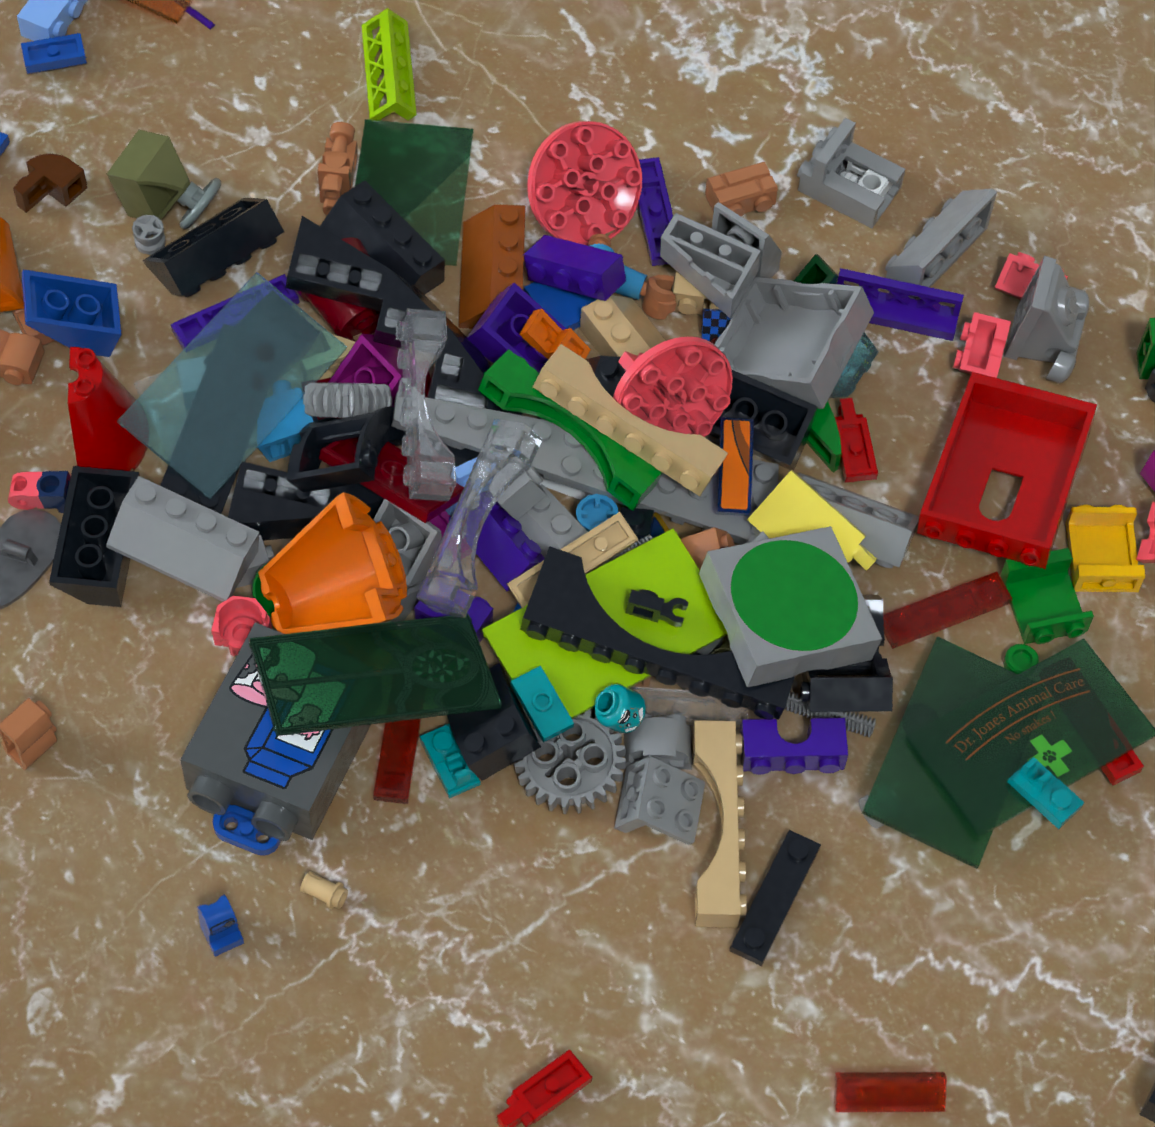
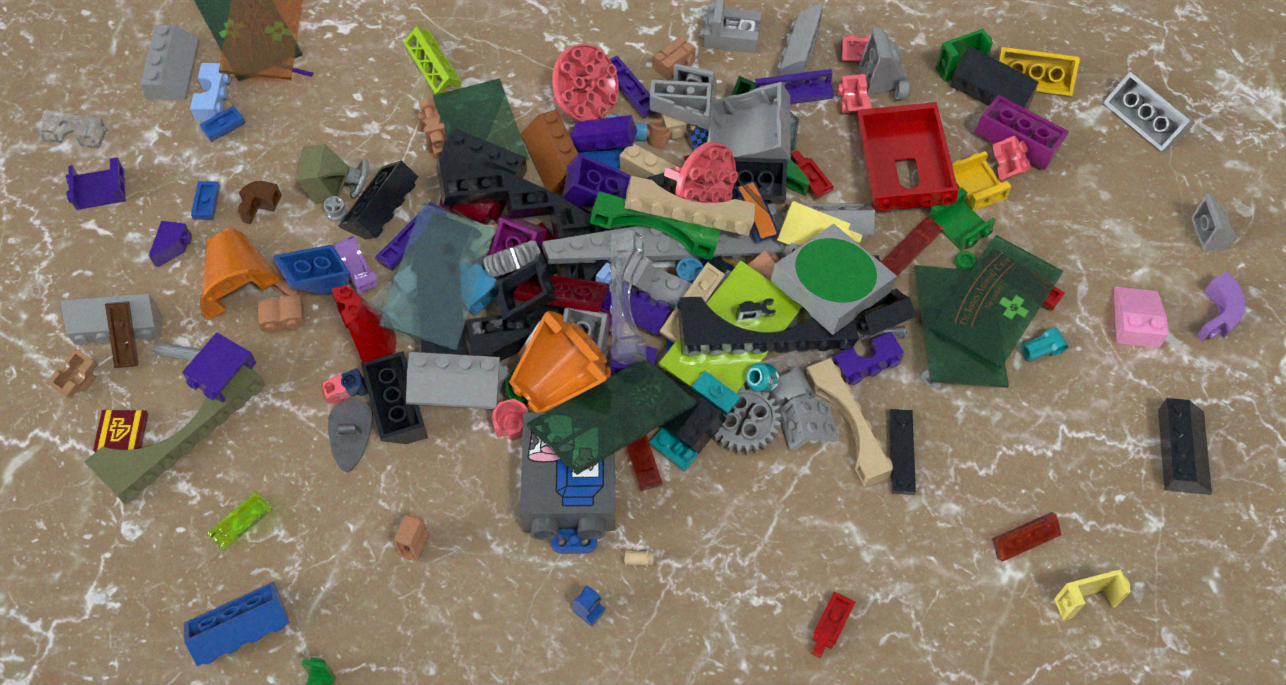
camera: 20 degrees left, 0 degrees up
(137, 325) = (361, 275): none -> medium lavender arch
(429, 461) = (586, 275): clear arch -> none
(547, 336) = (612, 178): orange slope -> none
(1046, 792) = (1024, 328): teal plate -> none
(1082, 831) = (1050, 342): none -> teal piece

